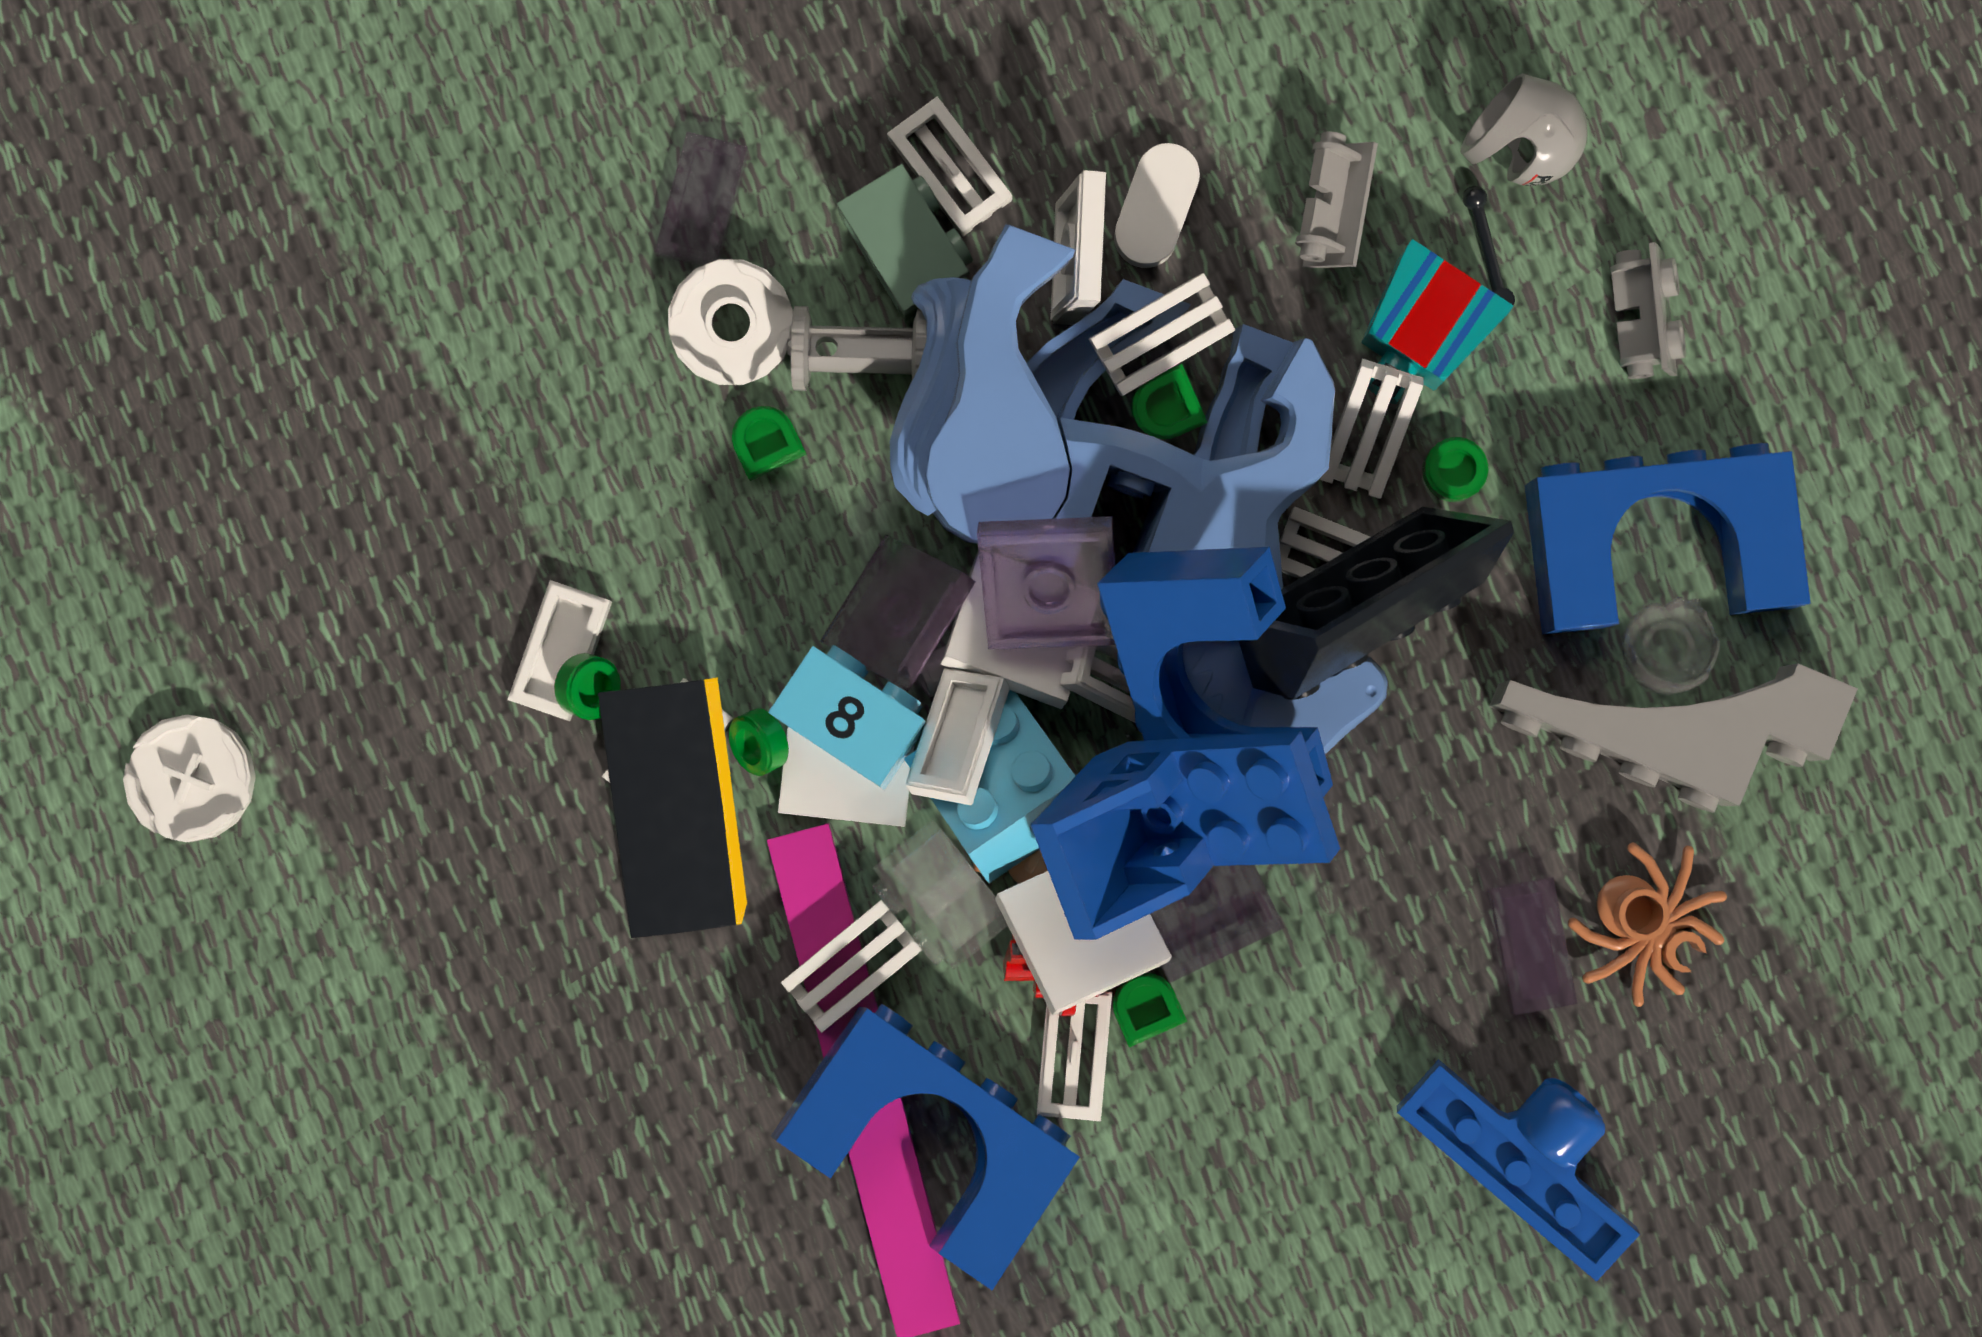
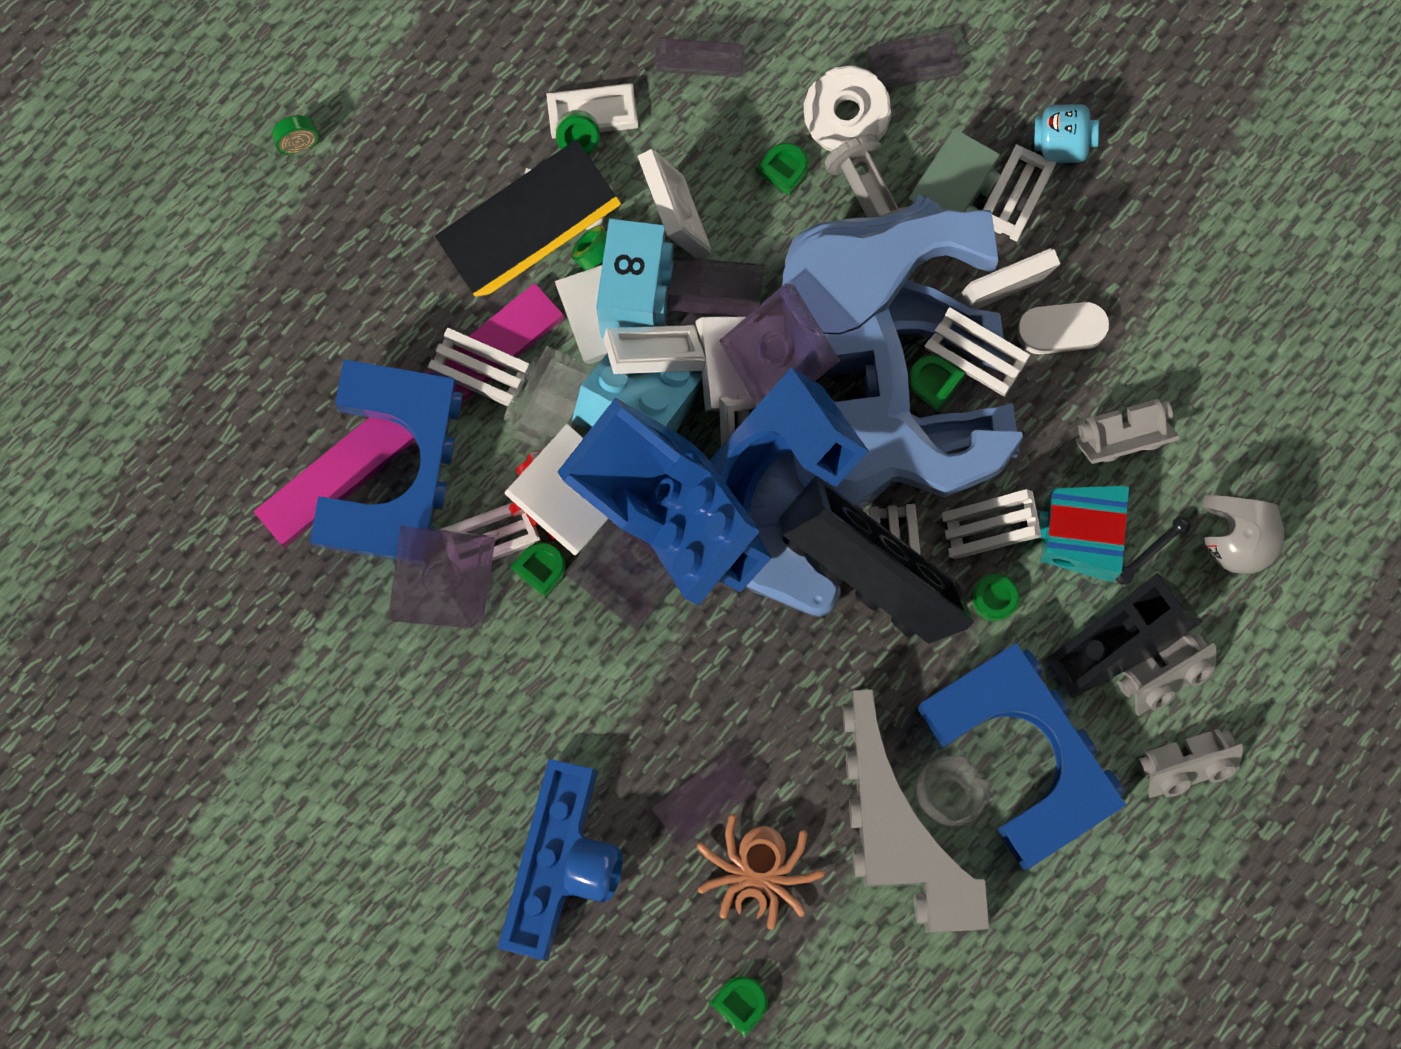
camera: 70 degrees right, 10 degrees down
(399, 1059) = (294, 134): none -> tile
(563, 474) = (700, 57): none -> tile
(761, 611) = (674, 204): none -> white tile
(907, 63) = (1066, 133): none -> medium azure head
(1111, 1142) = (441, 577): none -> clear purple tile
(1585, 344) = (1124, 636): none -> black slope
(1771, 321) = (1210, 758): none -> light grey hinge
(1790, 1019) = (741, 1003): none -> green tile

